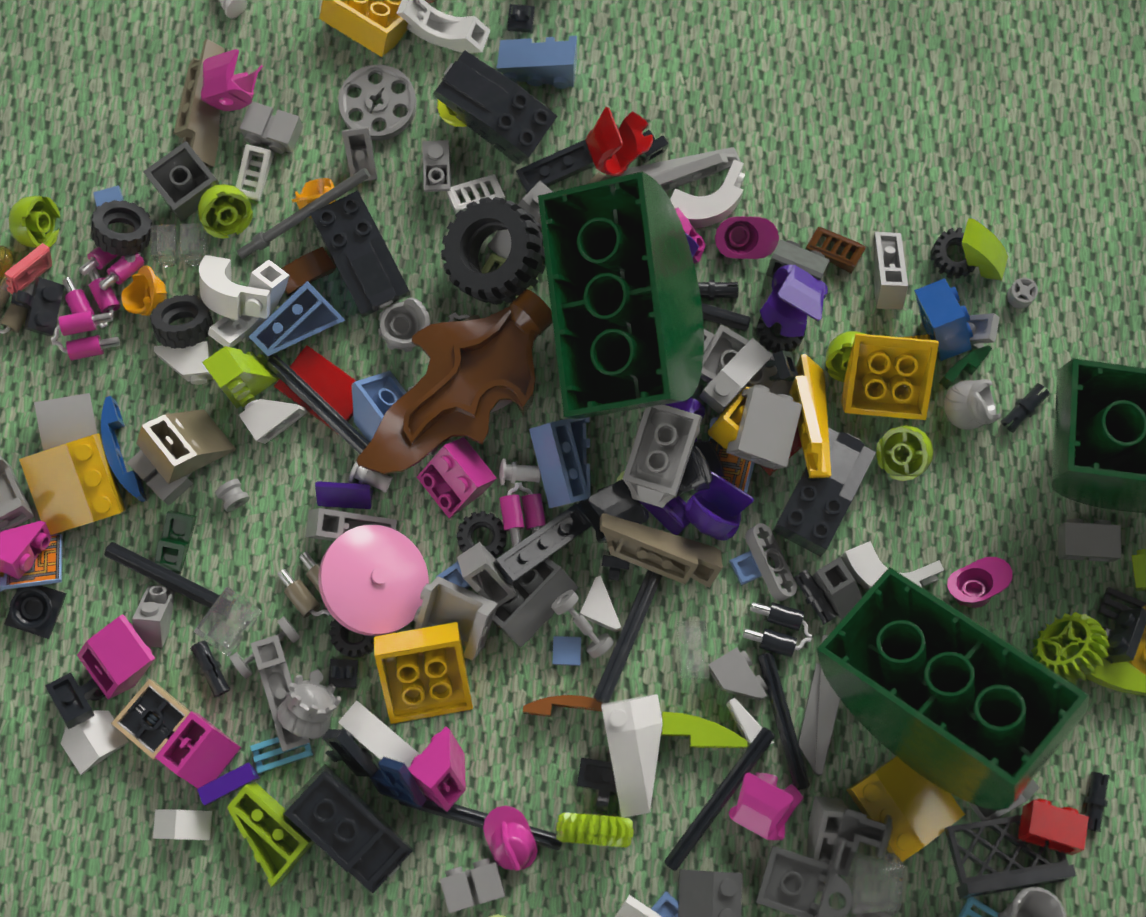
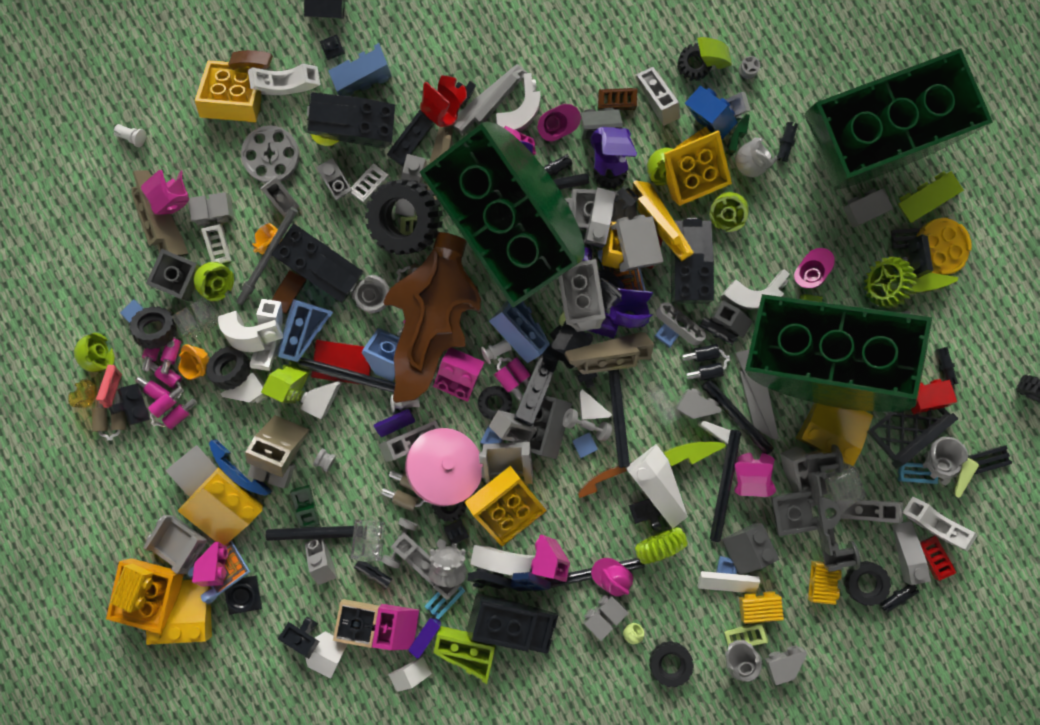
camera: 30 degrees left, 10 degrees up
(116, 657) = (312, 599): dark pink slope -> none

